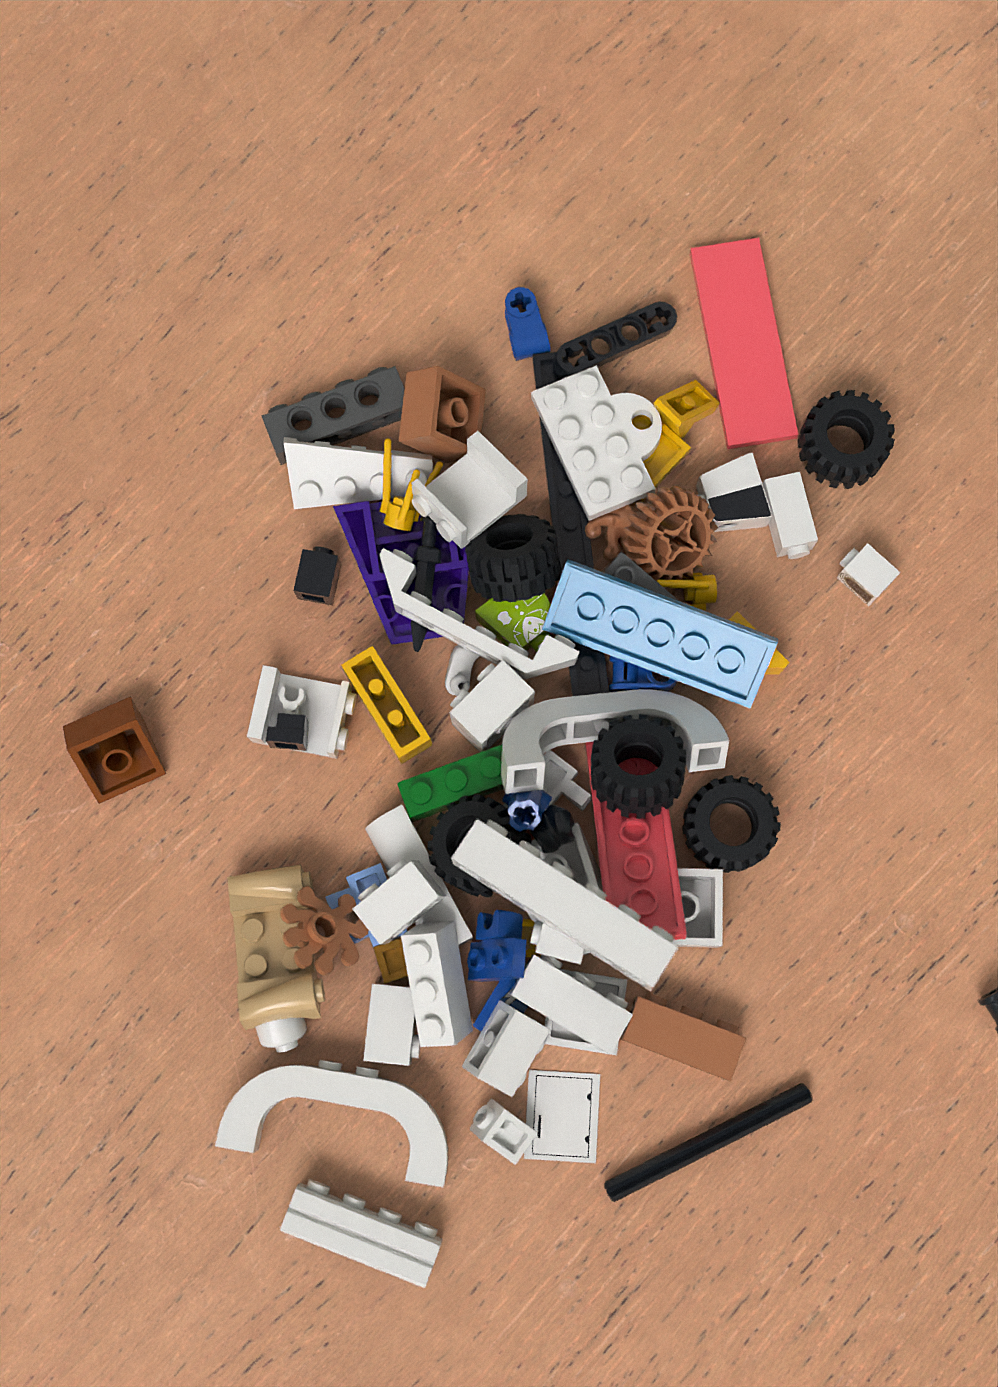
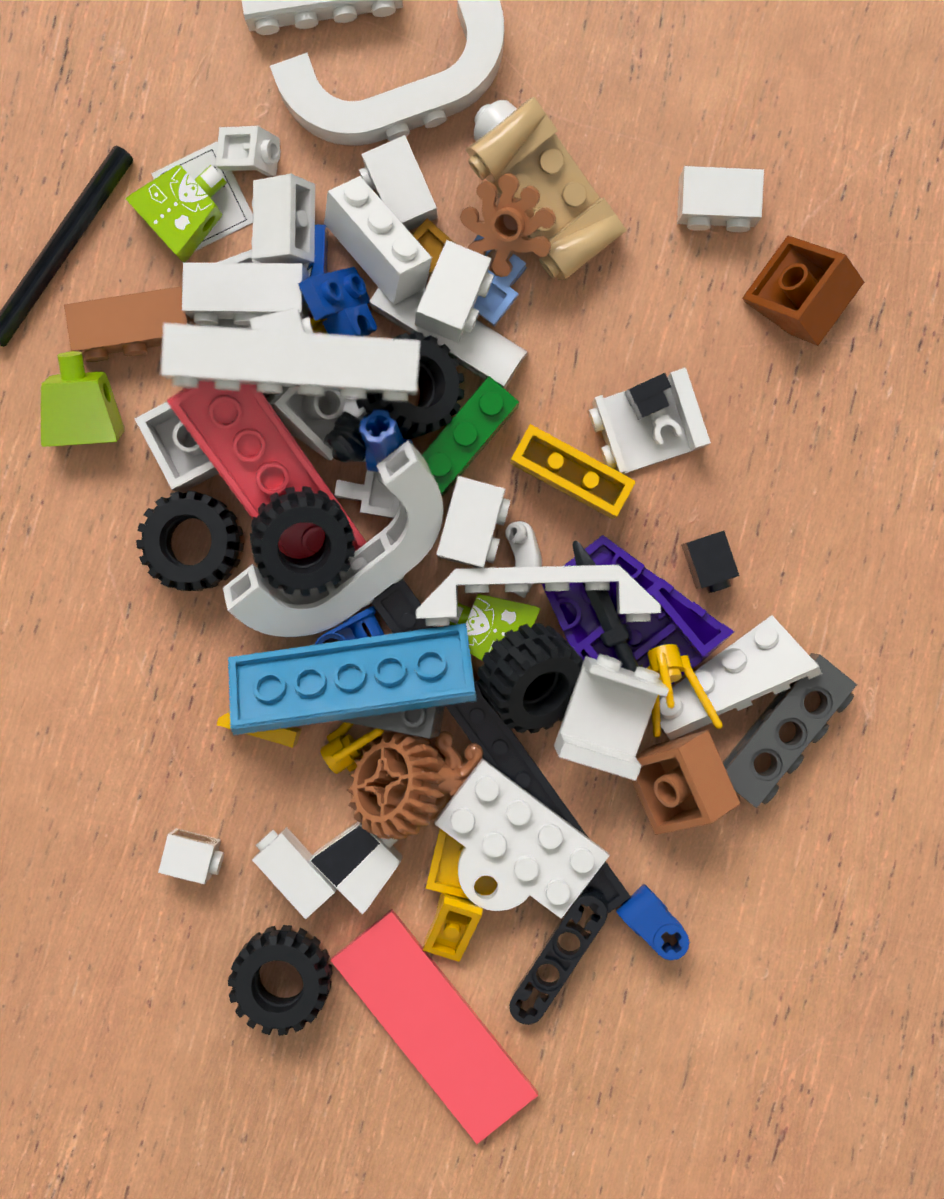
camera: 145 degrees right, 10 degrees up
(135, 862) = (720, 198): none -> white brick
(587, 1113) = (180, 207): none -> lime torso
(764, 988) = (78, 406): none -> lime torso

